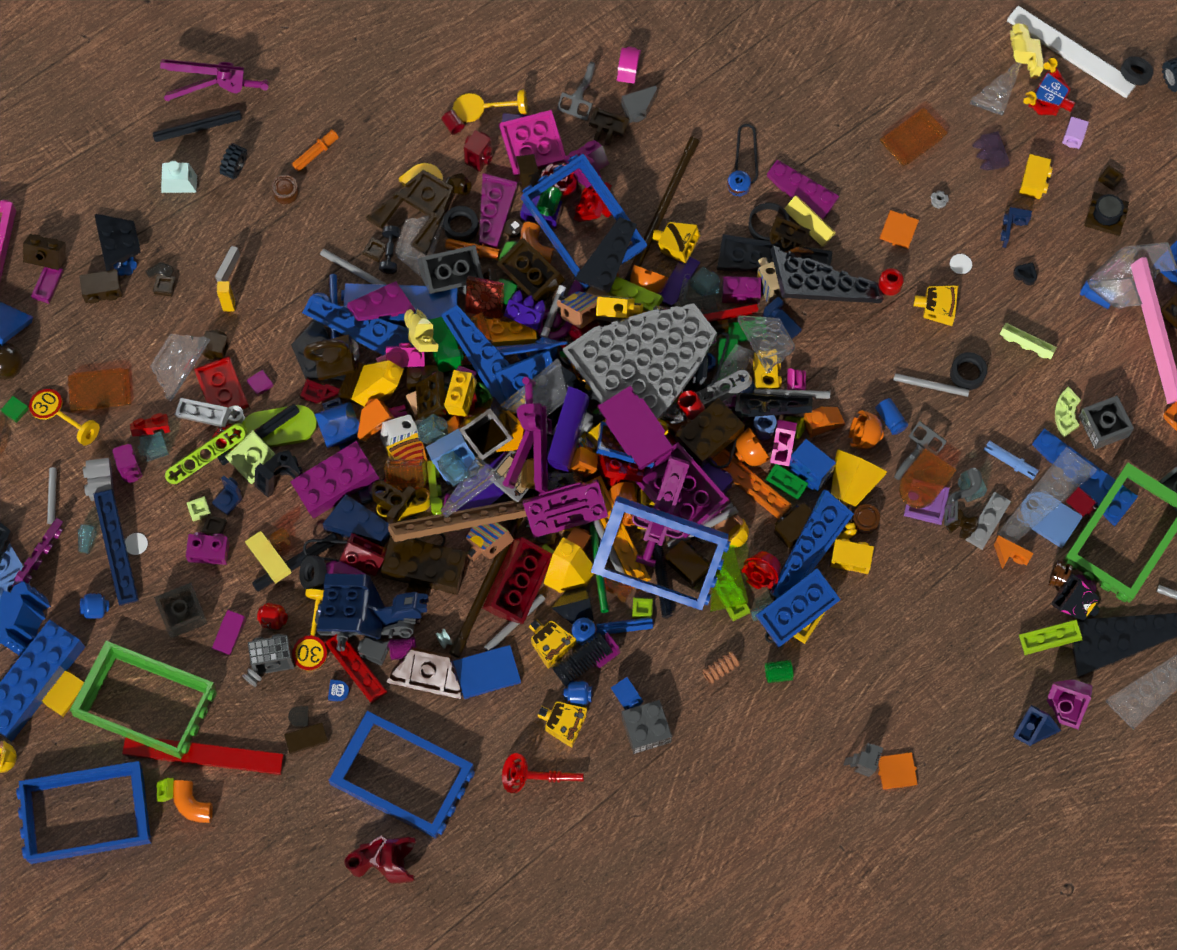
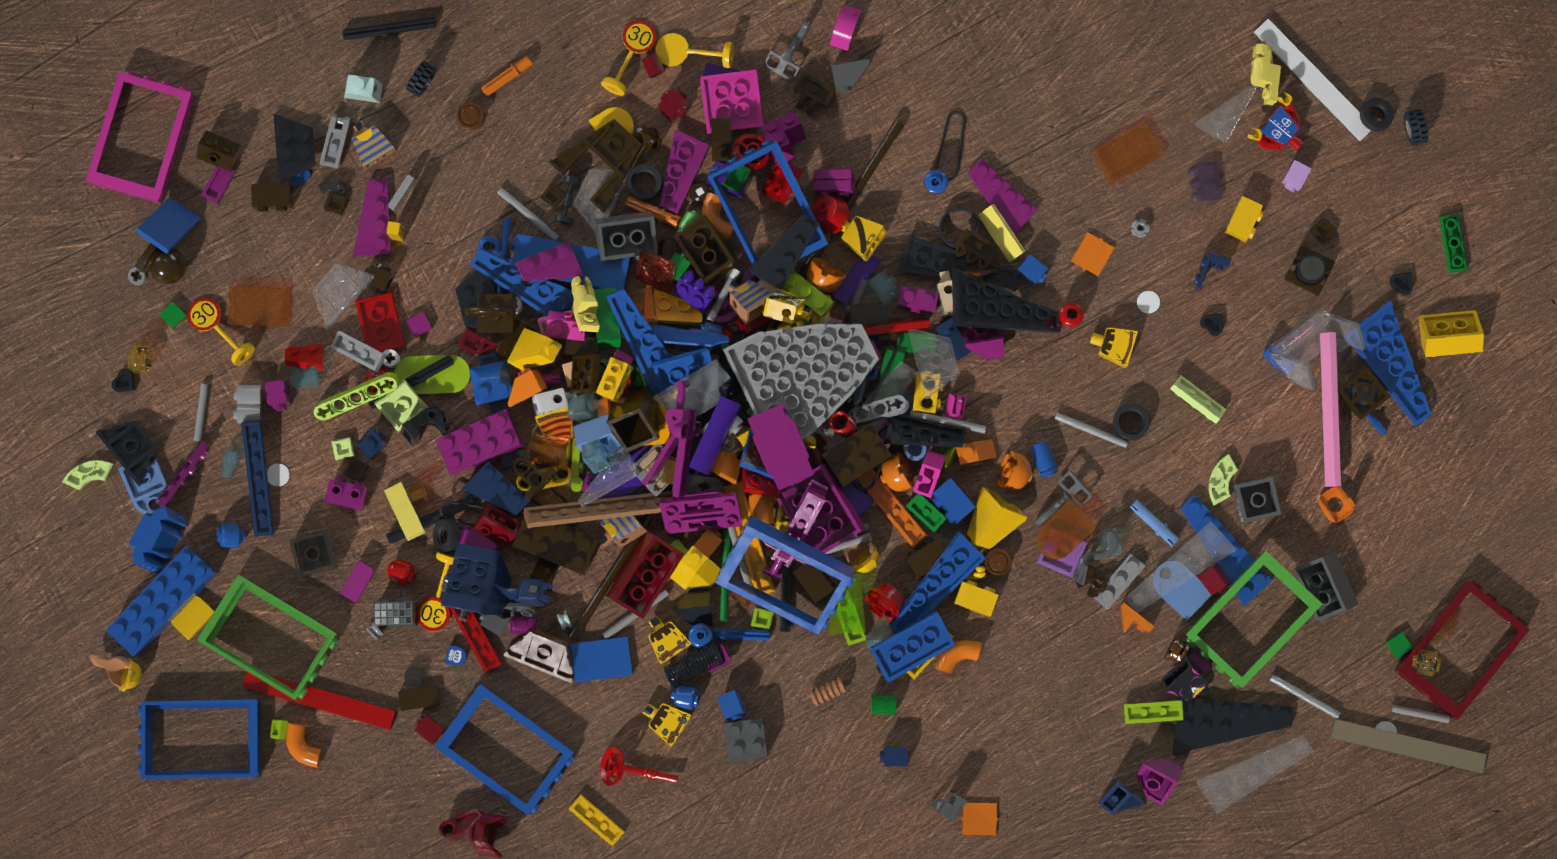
camera: 15 degrees right, 15 degrees up
(157, 230) = (335, 141): none -> light grey plate
(193, 227) = (371, 145): none -> torso
(204, 303) = (372, 230): none -> magenta wing
(320, 765) = (429, 729): none -> dark red brick
(435, 102) = (638, 38): none -> yellow piece
(506, 832) = (596, 820): none -> yellow tile
(642, 197) = (834, 182): none -> magenta brick
(647, 222) = (831, 213): none -> red cone
(800, 720) = (894, 756): none -> dark blue brick
(815, 315) = (984, 342): none -> magenta slope
(842, 610) = (961, 650): none -> orange cylinder
(846, 249) = (1033, 270): none -> blue brick

